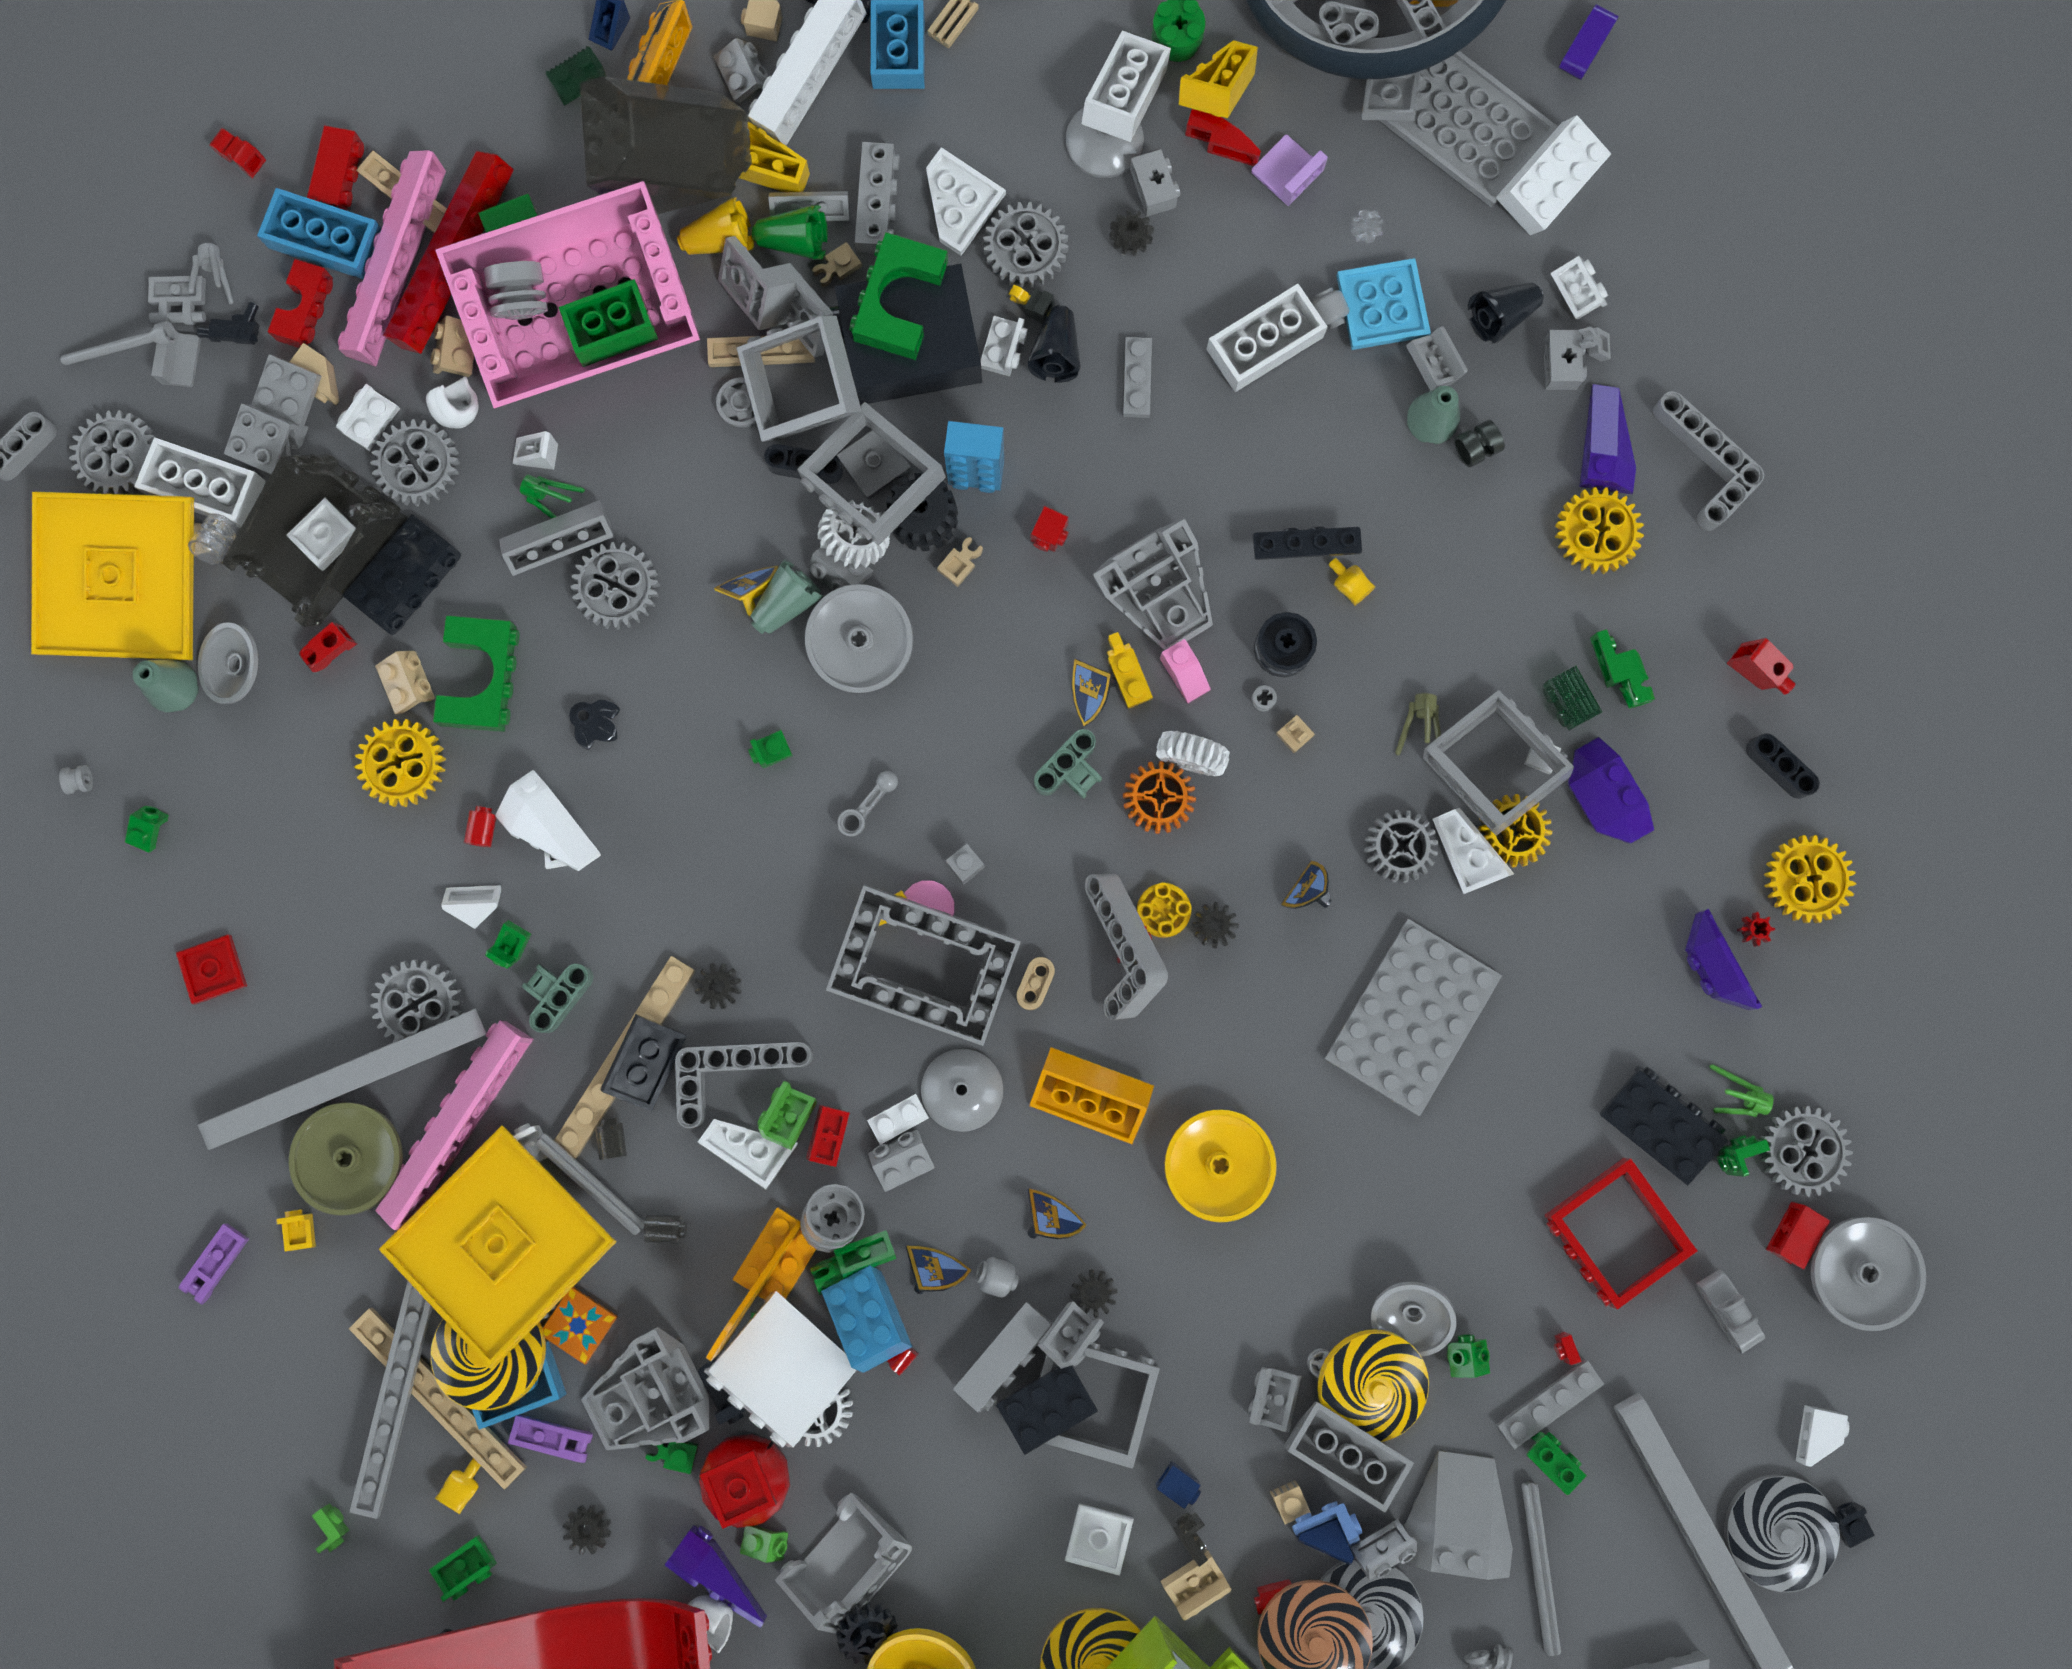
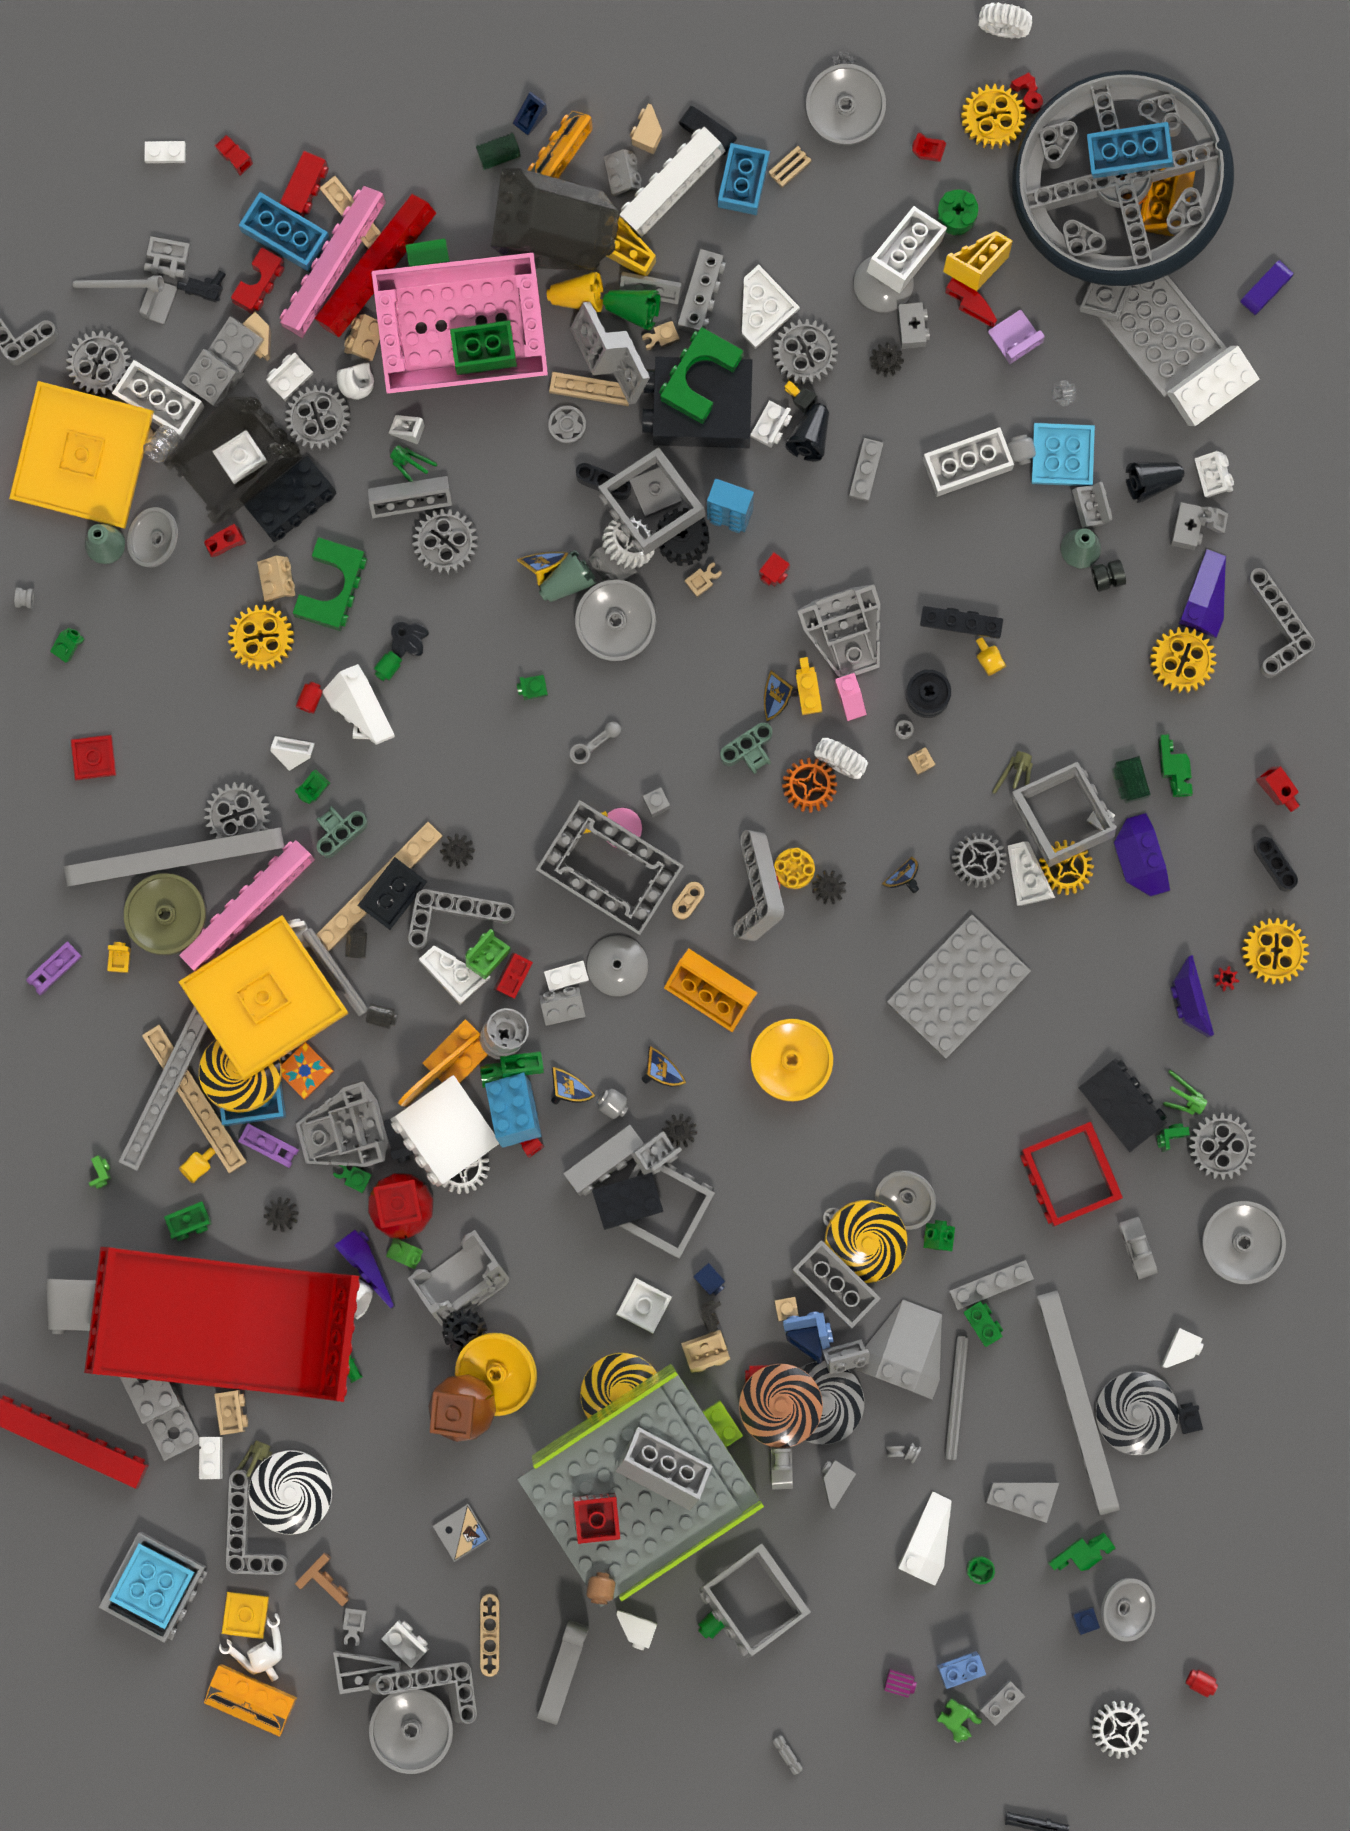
camera: 20 degrees right, 0 degrees up
(148, 168) = (165, 152): none -> white plate
(210, 260) = (198, 233): light grey plant -> none
(515, 284) = (421, 310): light grey wheel -> none
(574, 764) = (387, 666): none -> green brick
(759, 387) = (582, 418): light grey window -> none
(1274, 1398) = (792, 1234): light grey bracket -> none
(1566, 1348) = (1011, 1247): red plate -> none
(1797, 1235) = (1201, 1205): red hinge -> none

